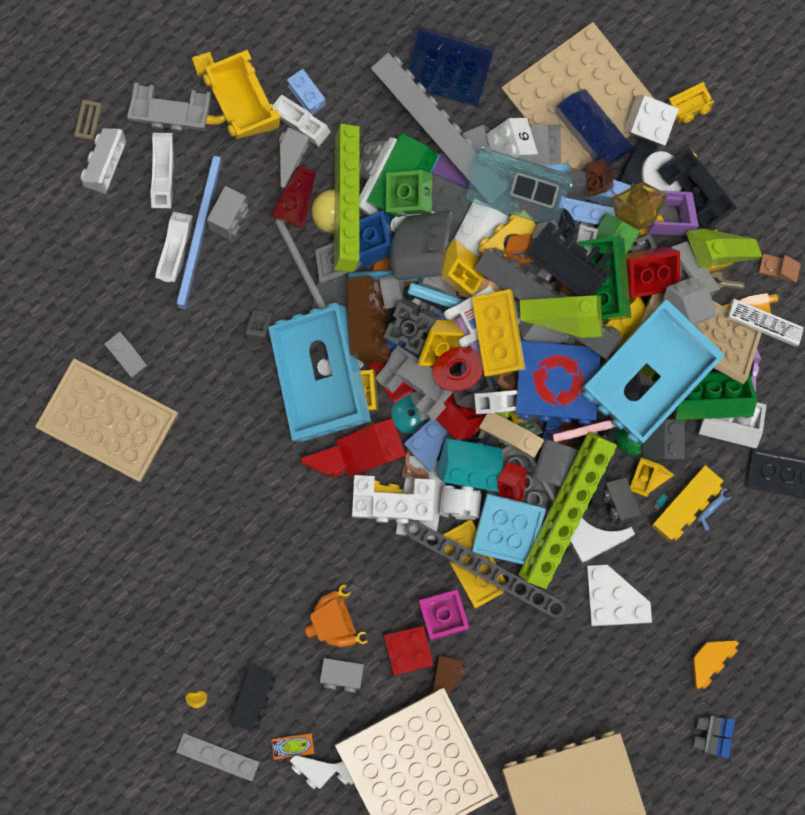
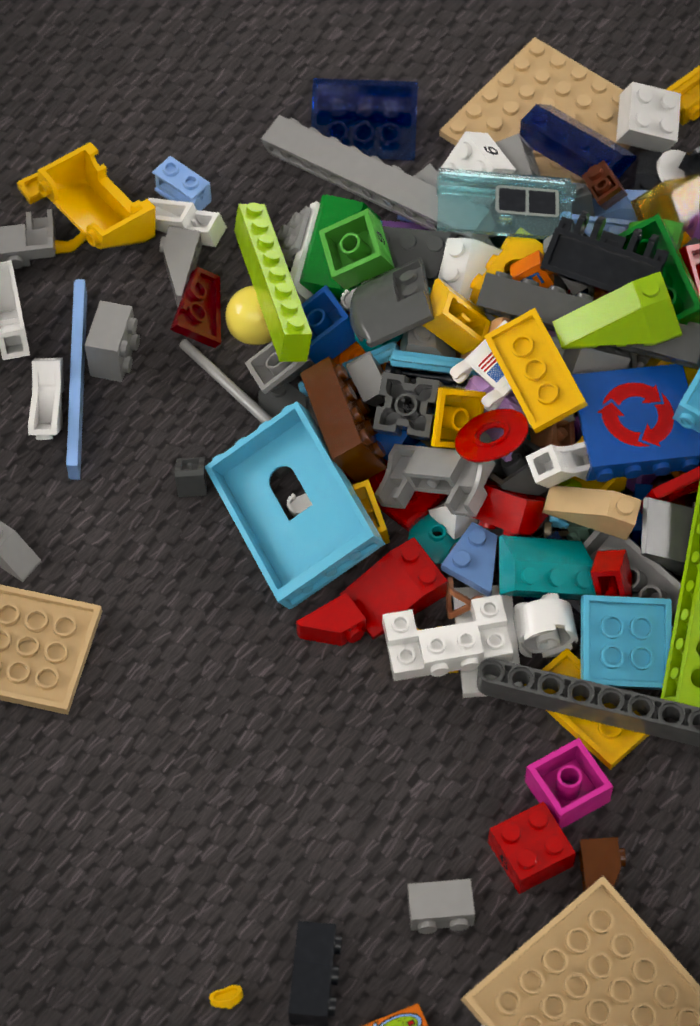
camera: 10 degrees left, 20 degrees down
(333, 622) = (407, 833): orange torso -> none

